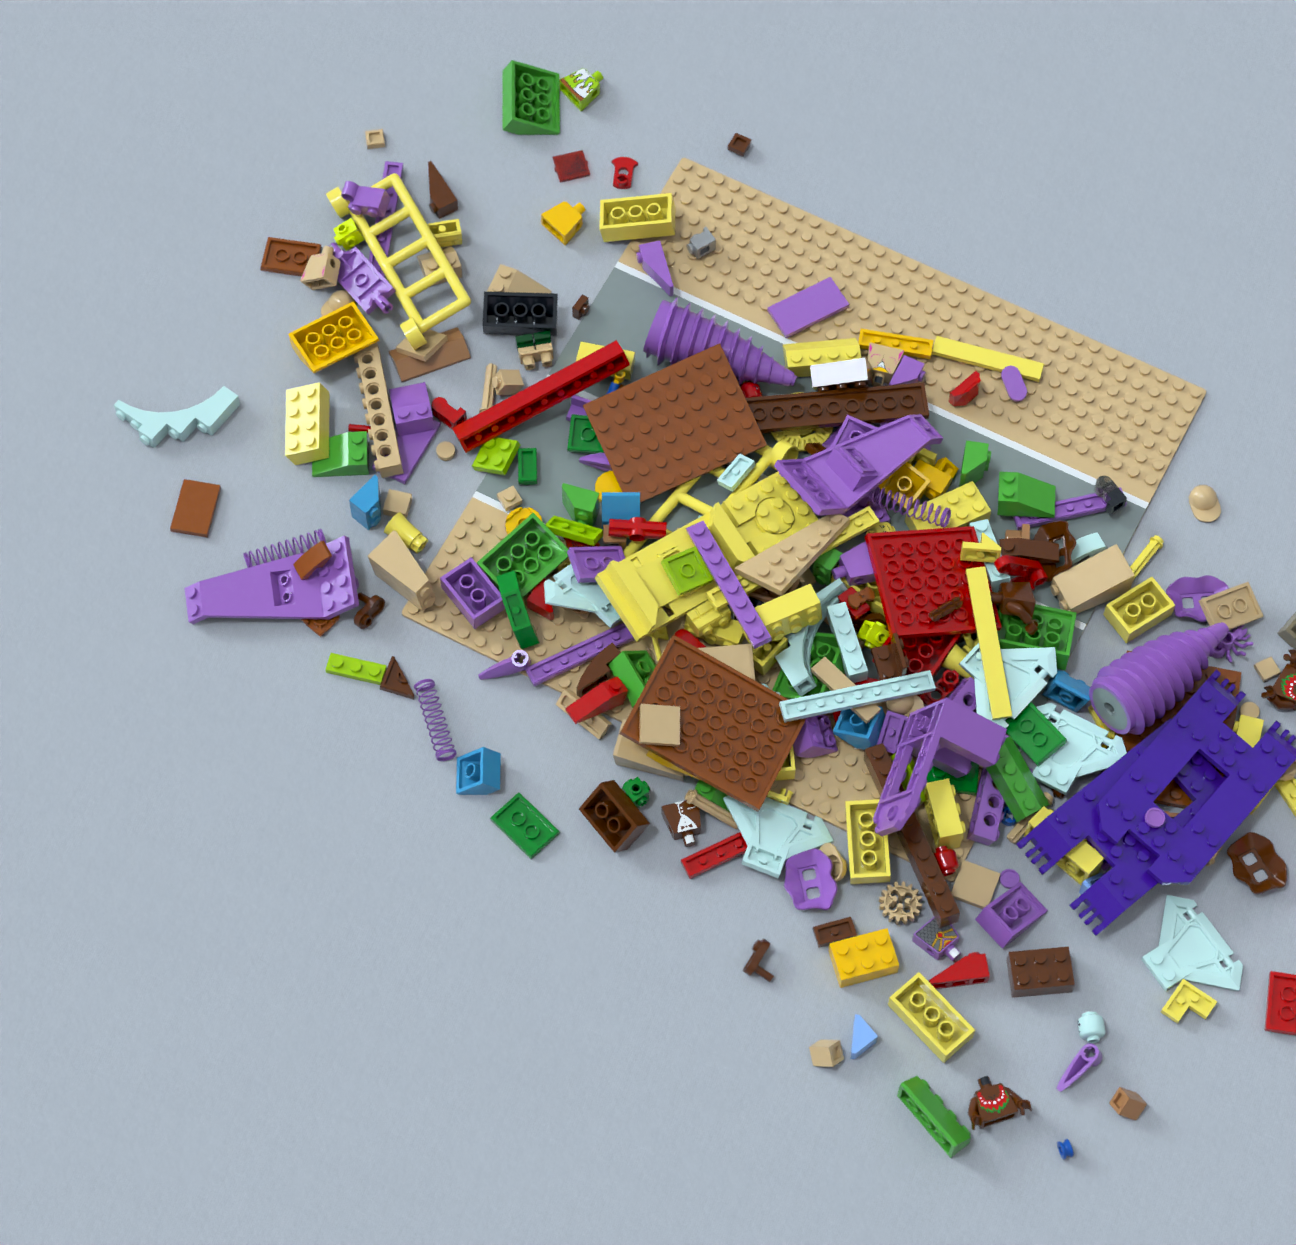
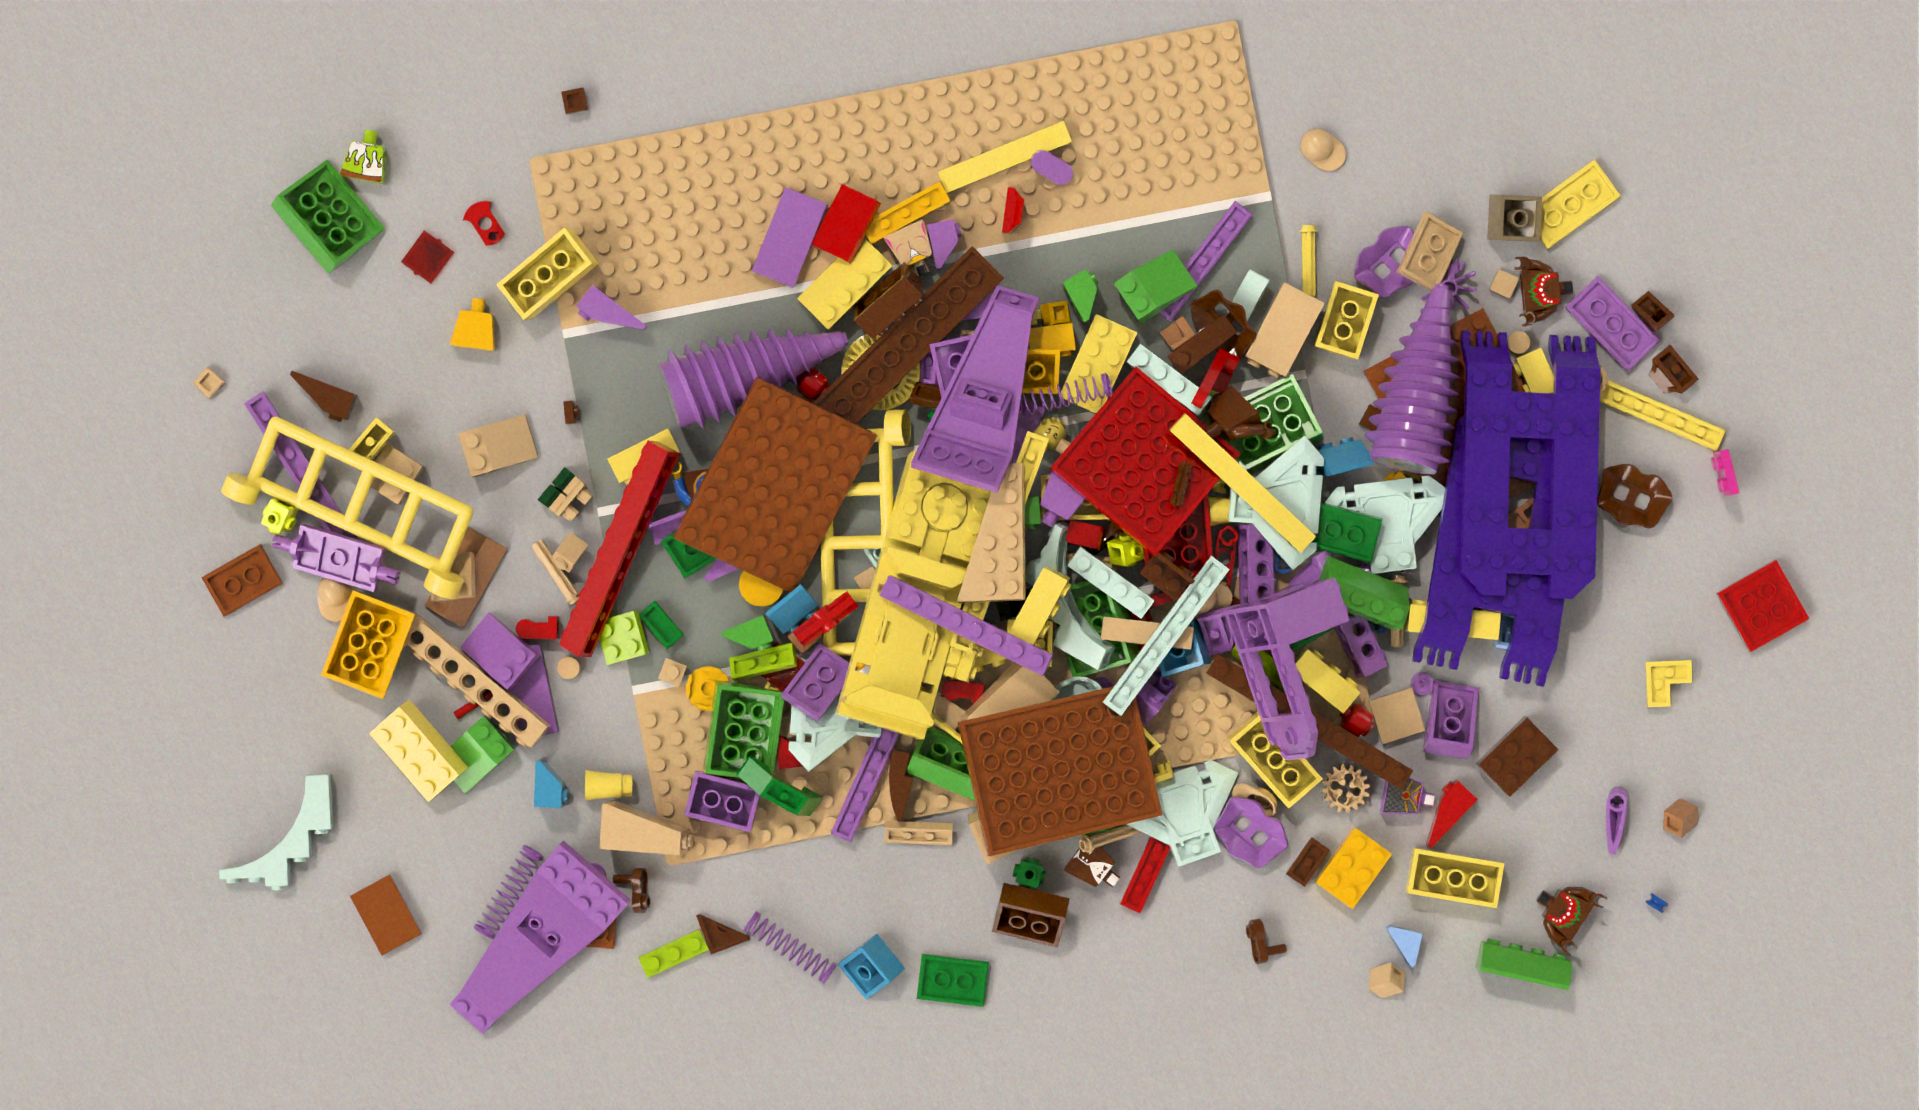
camera: 35 degrees left, 25 degrees up
(313, 558) = (549, 890): dark orange slope -> none
(321, 270) = (290, 577): tan torso -> none
(365, 199) = (272, 474): medium lavender hinge -> none
(397, 502) = (571, 759): tan piece -> none
(507, 666) = (811, 841): medium lavender piece -> none
(520, 313) = (521, 471): black slope -> none
(598, 700) = (926, 818): red slope -> none
(659, 725) = (1018, 820): tan tile -> none
(686, 571) = (914, 638): lime plate -> none
(702, 243) = (631, 251): light grey brick -> none
(736, 472) = (871, 487): light aqua plate -> none
(852, 321) = (846, 223): none -> red tile
(859, 598) = (1089, 522): dark orange piece -> none
(984, 551) = (1172, 391): light yellow slope -> none
(1091, 1027) = (1598, 772): light aqua head -> none
(1110, 493) = (1233, 220): leg -> none
(1155, 817) = (1522, 544): medium lavender piece -> none
(1191, 950) = (1632, 625): light aqua plate -> none

